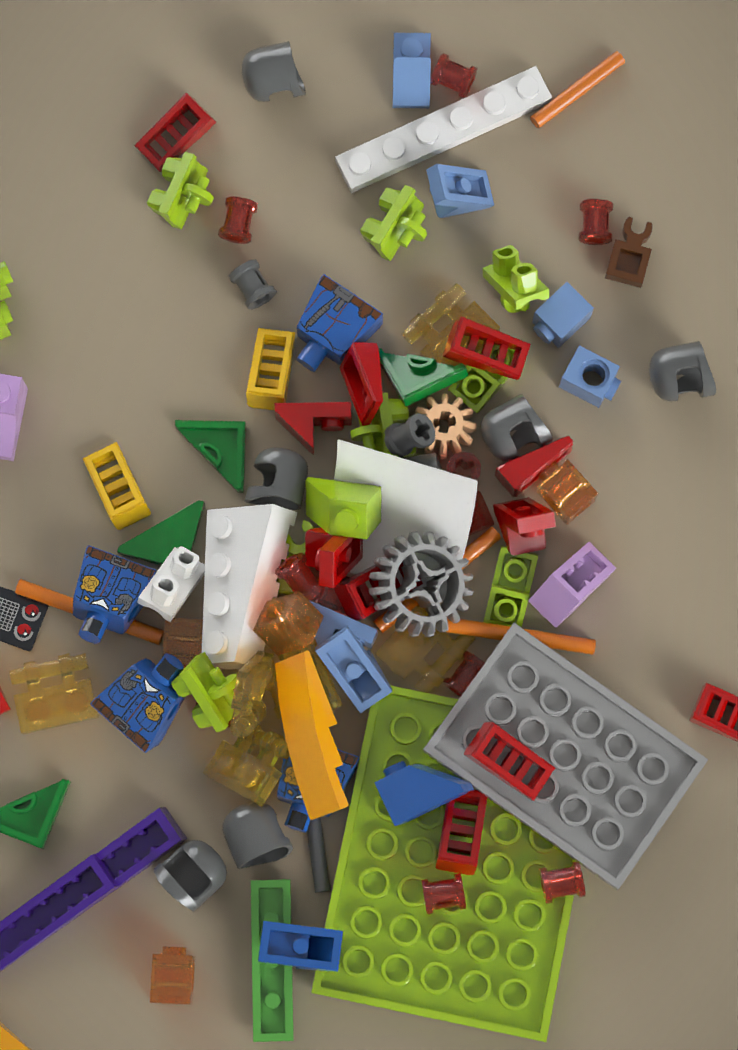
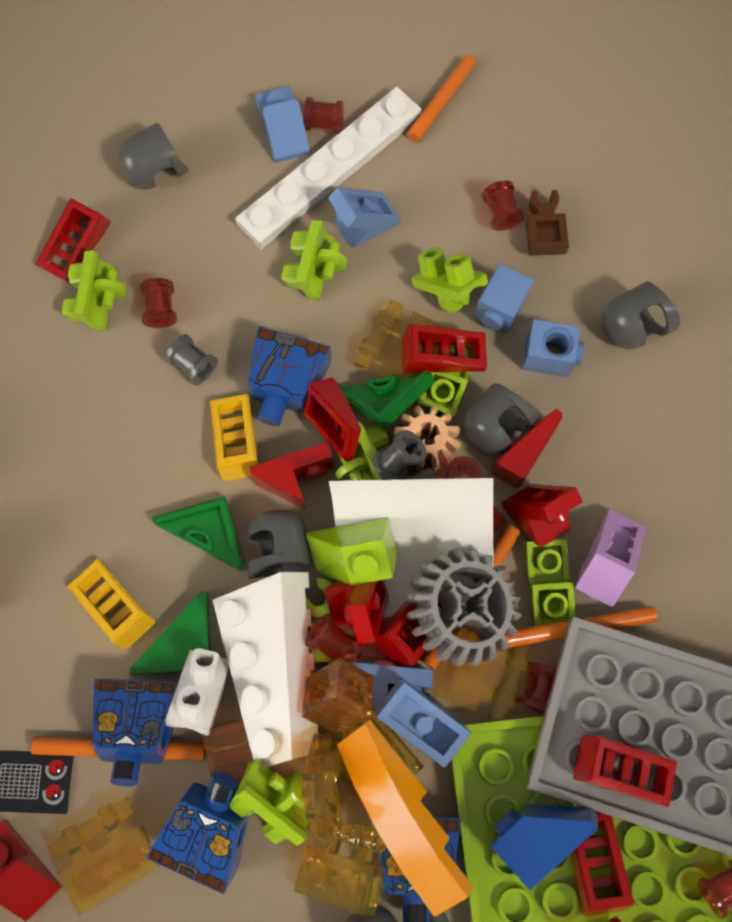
camera: 20 degrees left, 5 degrees down
(566, 490) = (570, 463): clear orange brick -> none

